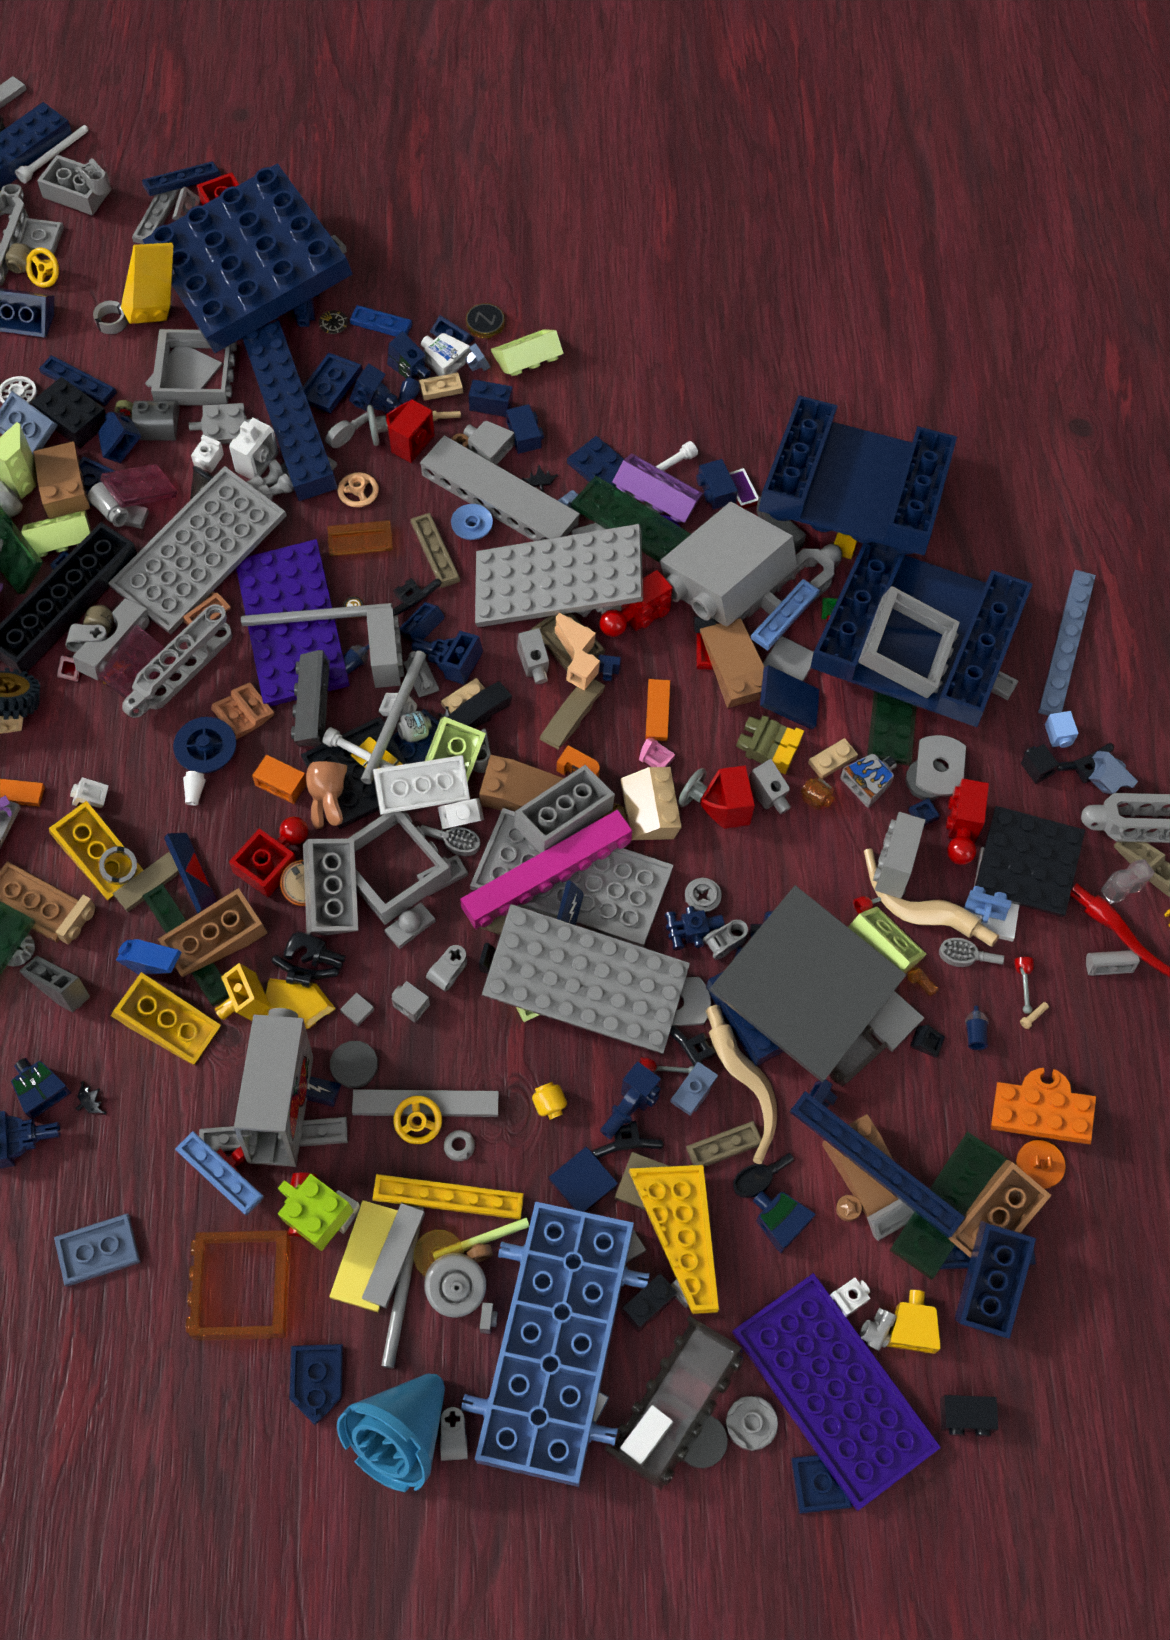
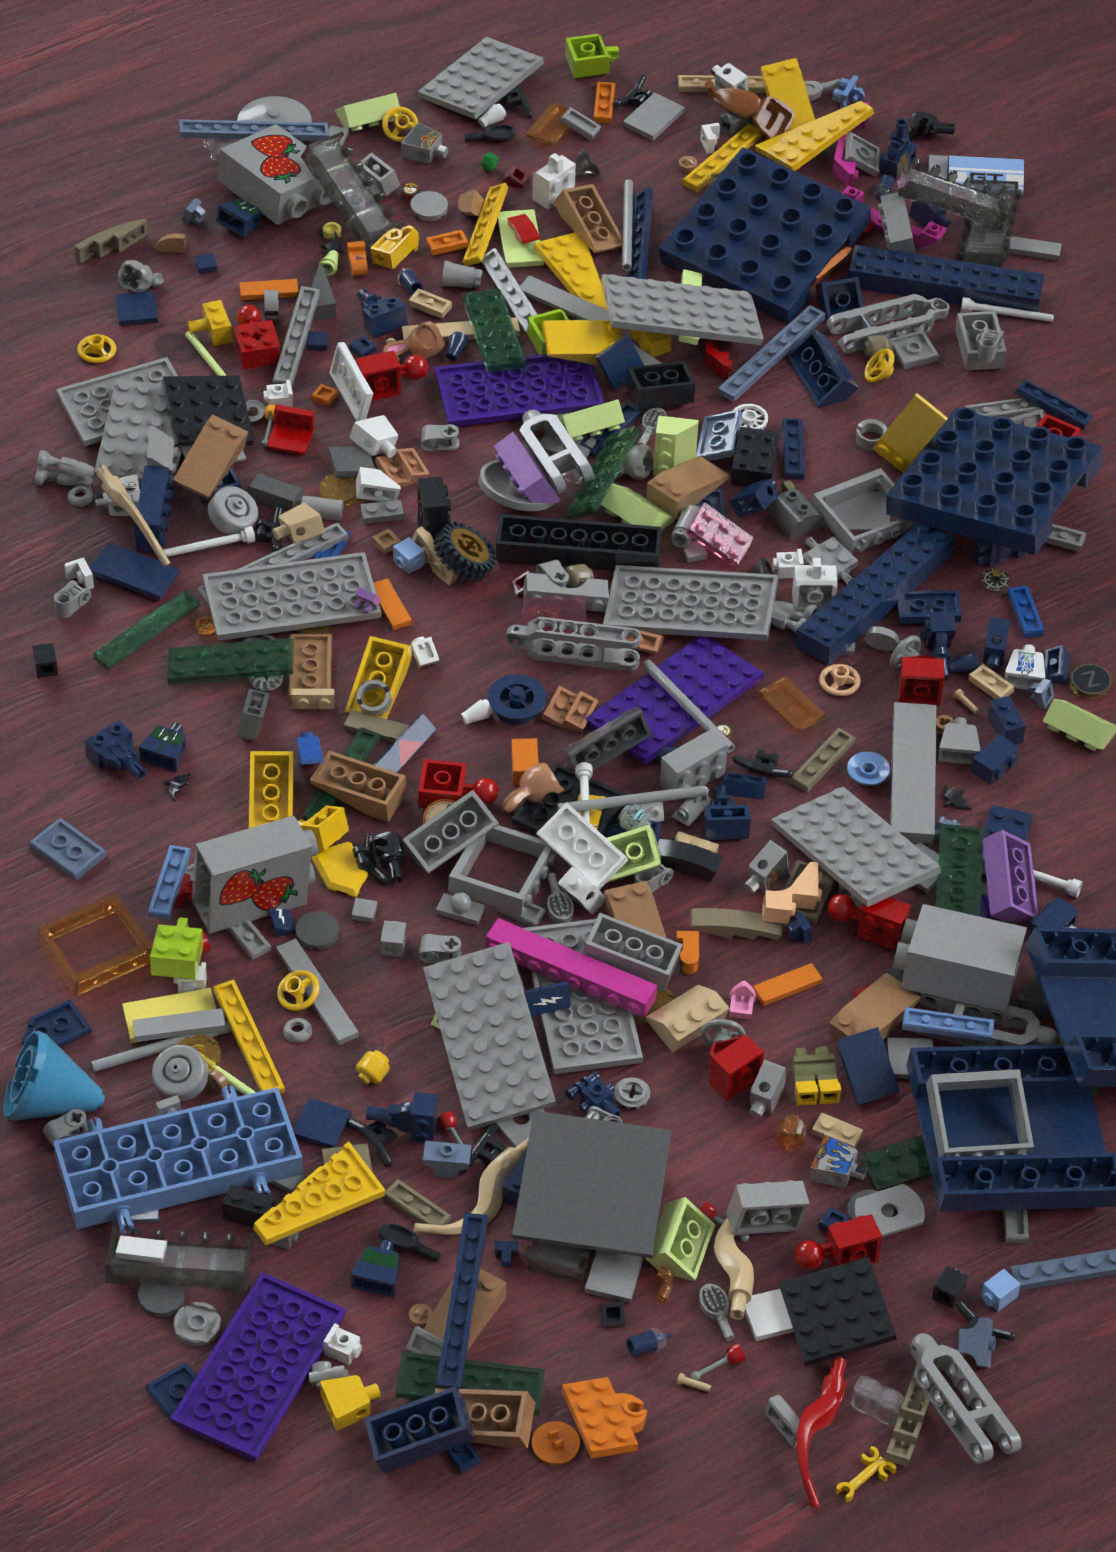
camera: 60 degrees right, 15 degrees down
(969, 1414) = (297, 1468): black brick -> none
(987, 905) = (767, 1297): medium blue hips -> none

